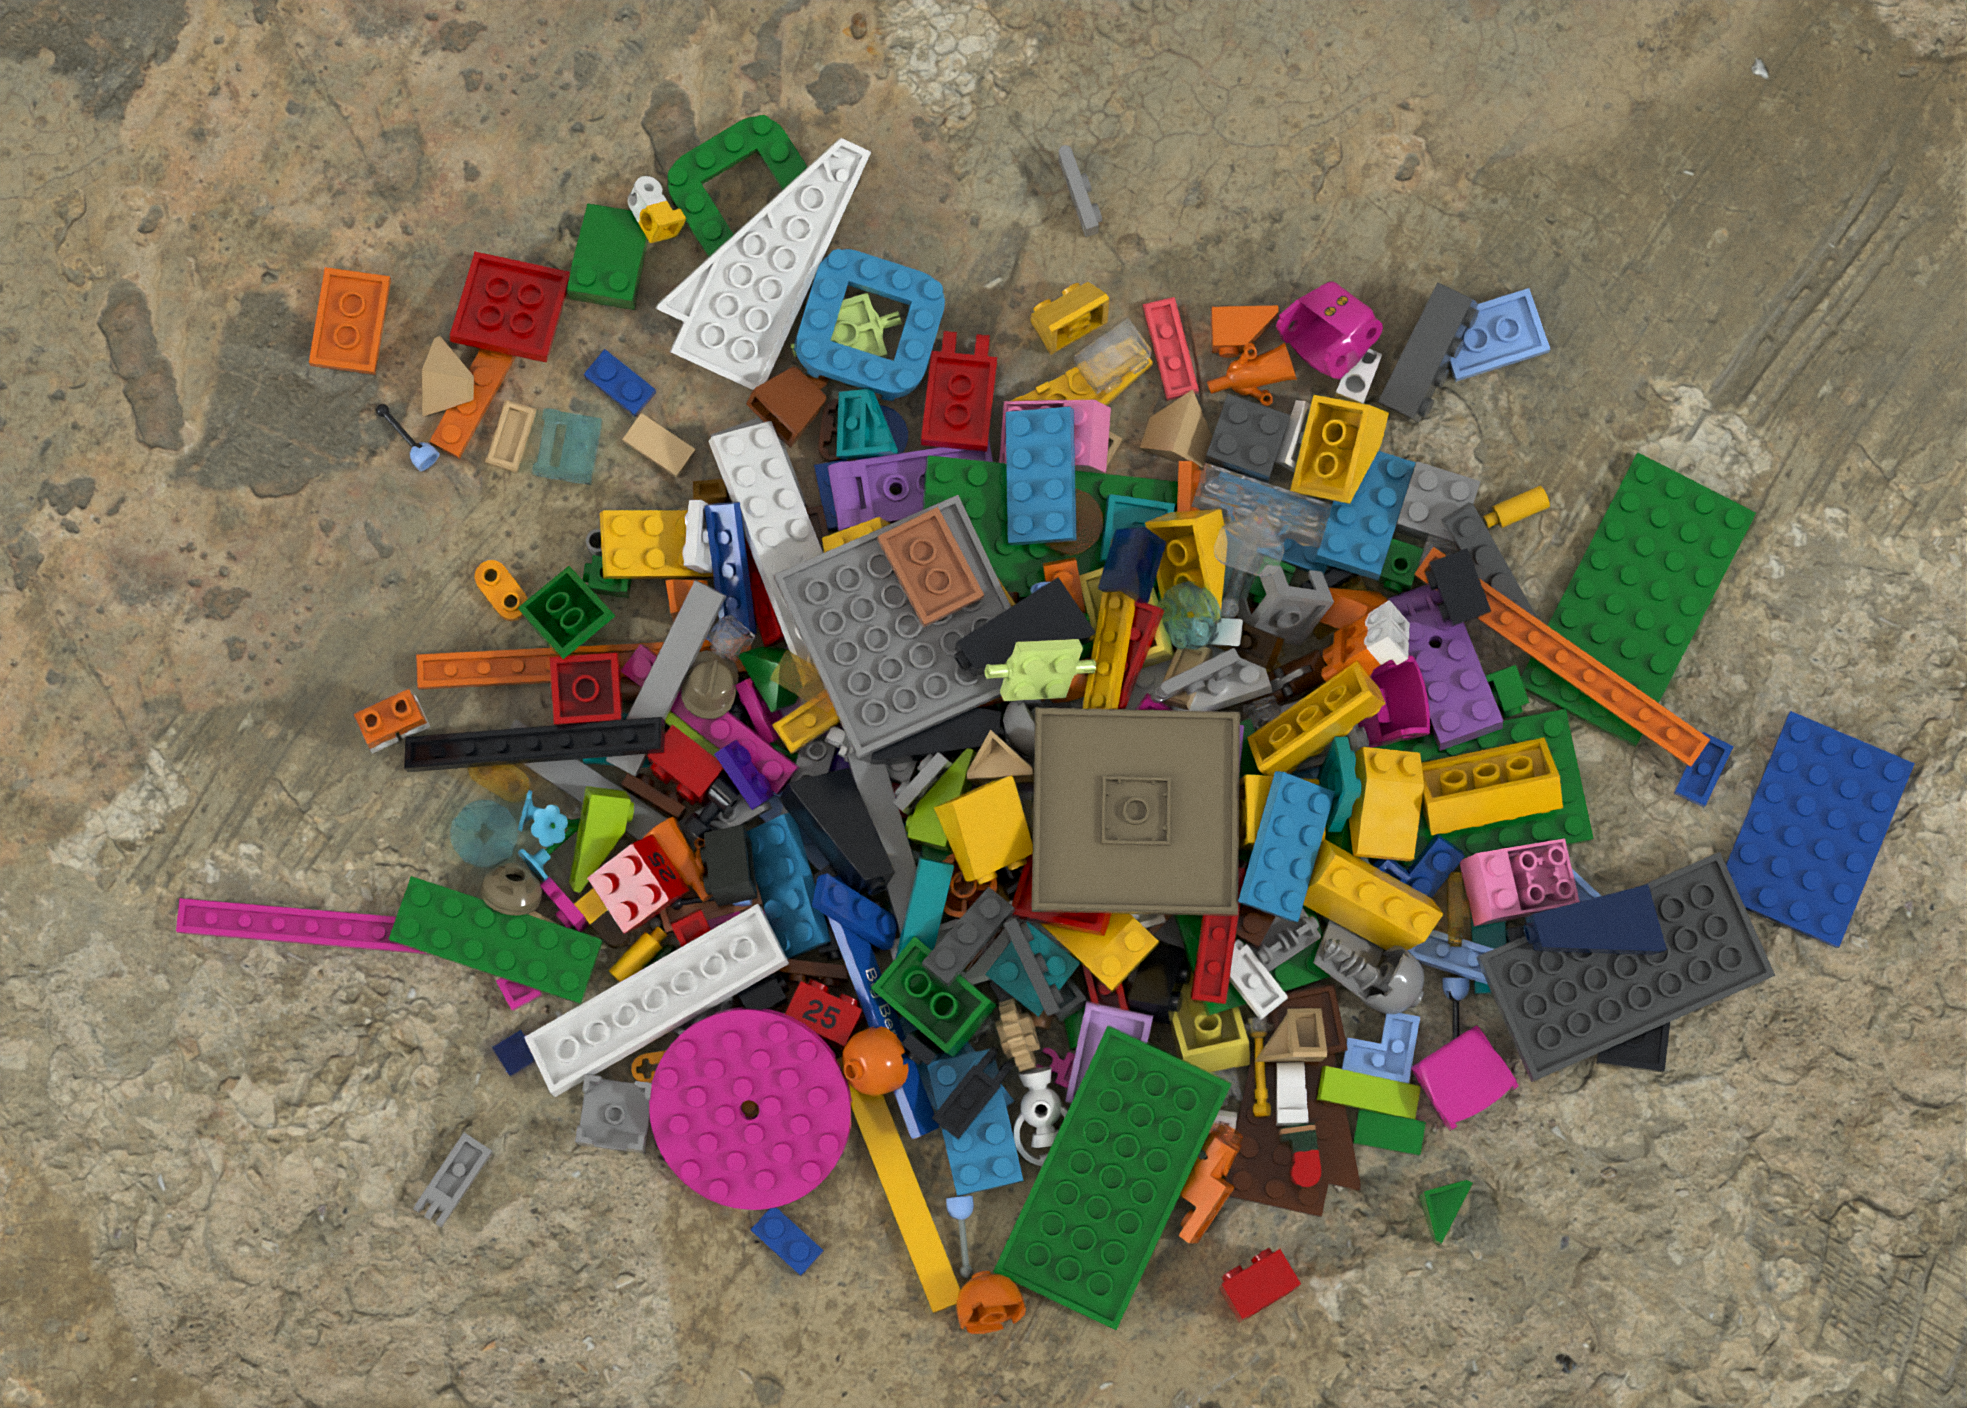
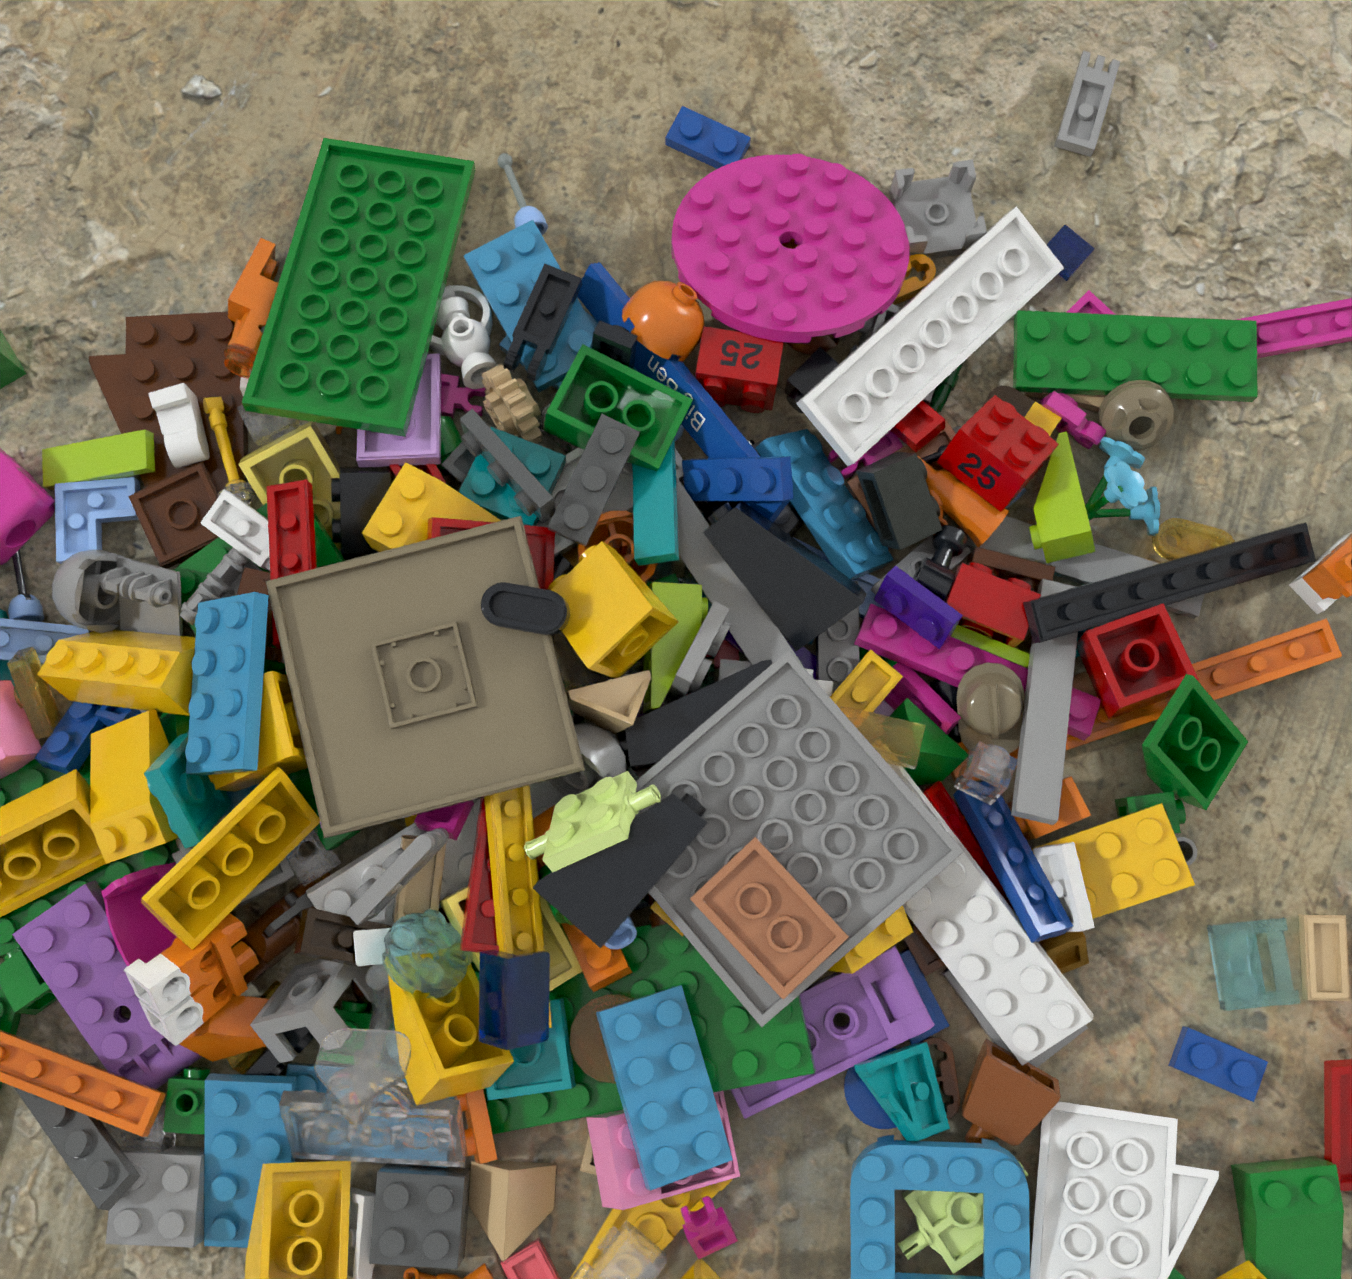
camera: 165 degrees right, 0 degrees up
(469, 822) = (1194, 455): clear light blue plate -> none
(500, 589) = (1270, 765): light orange plate -> none
(638, 955) = (968, 388): yellow cylinder -> none
(659, 445) = (1144, 997): tan tile -> none
(828, 974) = (778, 421): reddish brown plate -> none
(905, 1199) = (581, 204): yellow tile -> none
(959, 396) = (797, 1166): red tile -> none
(988, 1302) = (469, 126): orange cylinder -> none
(1038, 371) = (707, 1228): none -> dark pink plate
(1046, 835) = (525, 608): none -> black tile
(1259, 1284) = (171, 213): red brick -> none
(1297, 1038) = (181, 482): tan slope -> none
(1304, 1152) = (149, 360): leg -> none
(1389, 1132) = (68, 426): green tile -> none
(1458, 588) = (93, 1088): black brick -> none
(1517, 508) = (58, 1225): yellow cylinder -> none

